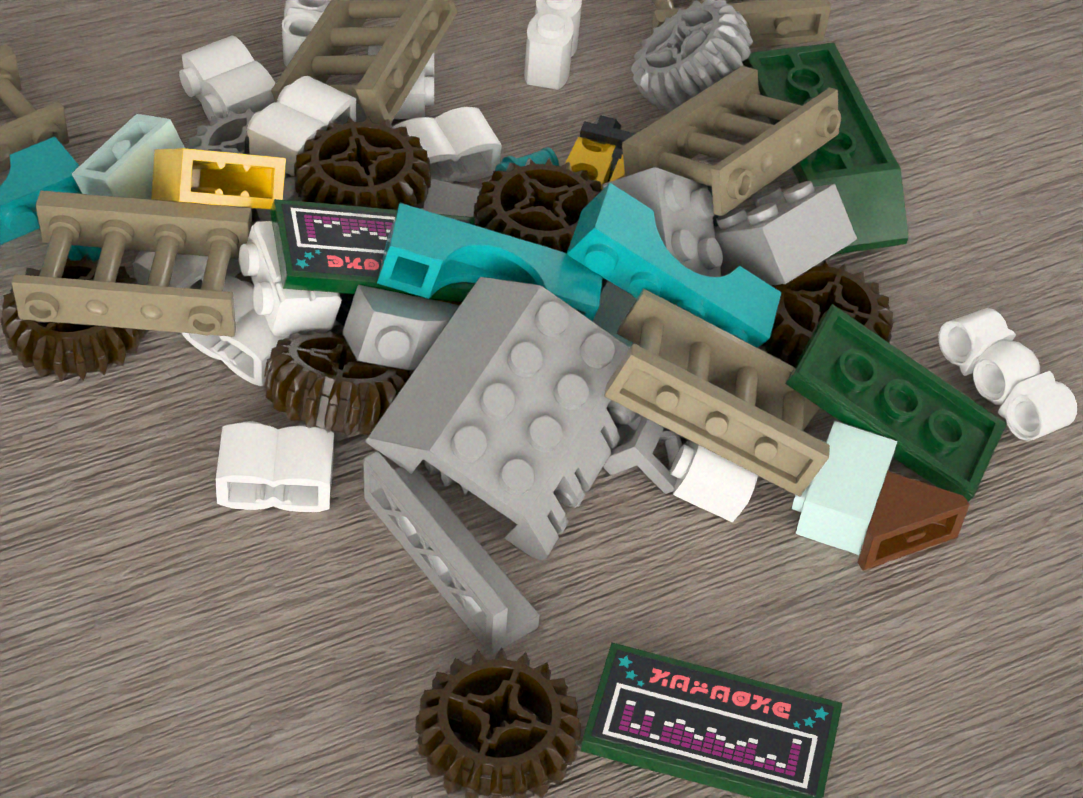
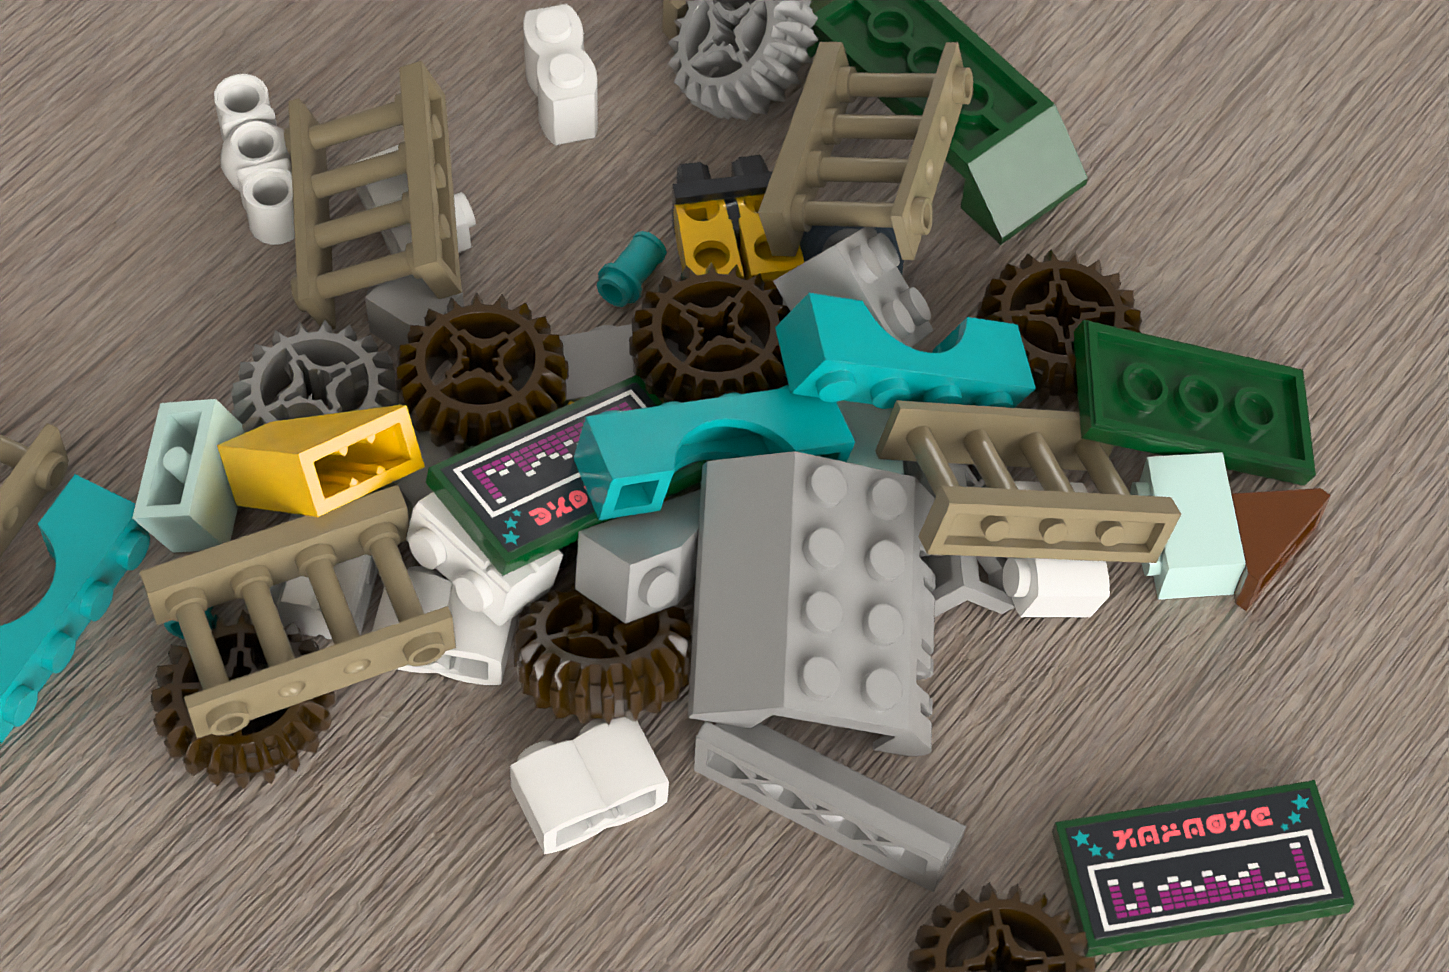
camera: 25 degrees left, 10 degrees up
(226, 78) = (220, 300): white brick -> none
(295, 117) = (367, 337): white brick -> none
(457, 144) = (532, 266): white brick -> none
(784, 232) = (980, 247): light grey brick -> none
(1007, 374) = (1279, 311): white piece -> none

